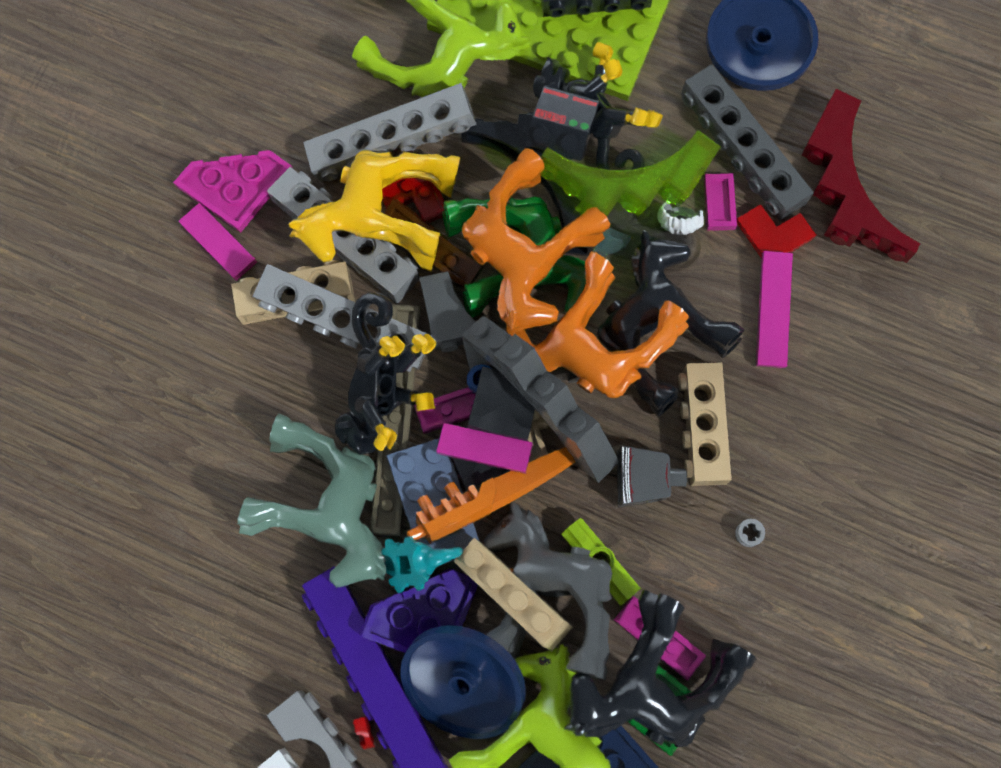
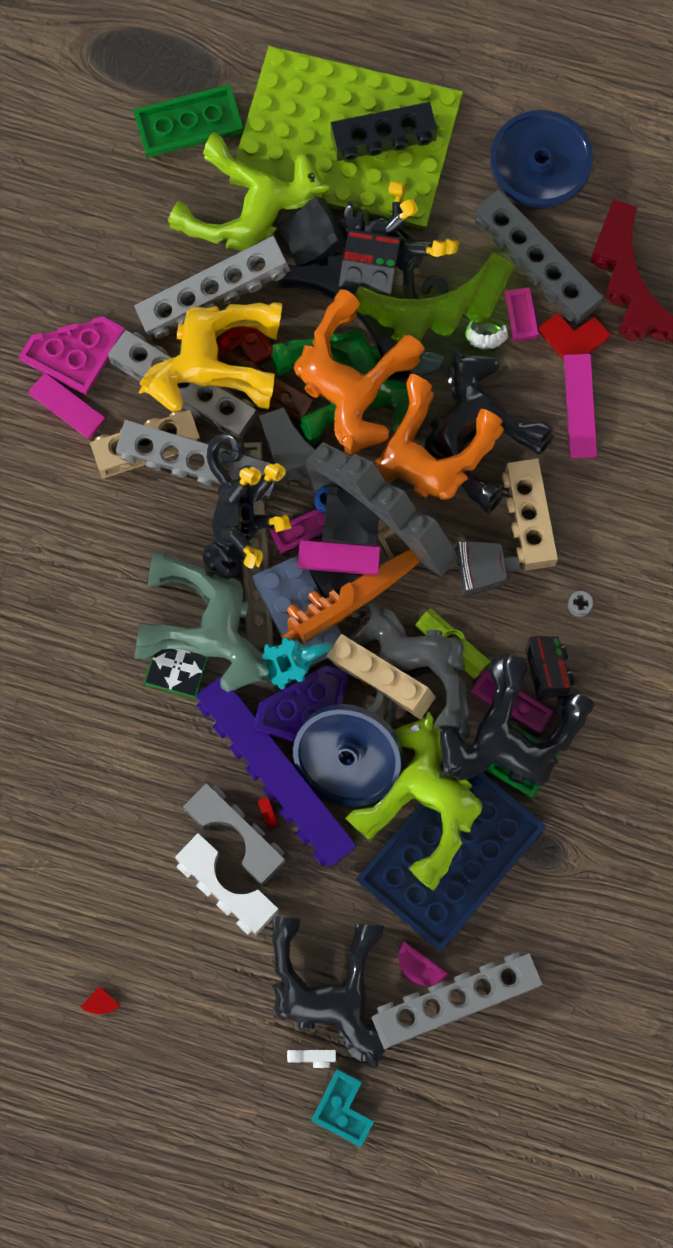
camera: 10 degrees left, 0 degrees up
(287, 553) = (176, 672): none -> tile
(505, 87) = (312, 232): none -> black brick
(707, 604) = (548, 666): none -> black slope

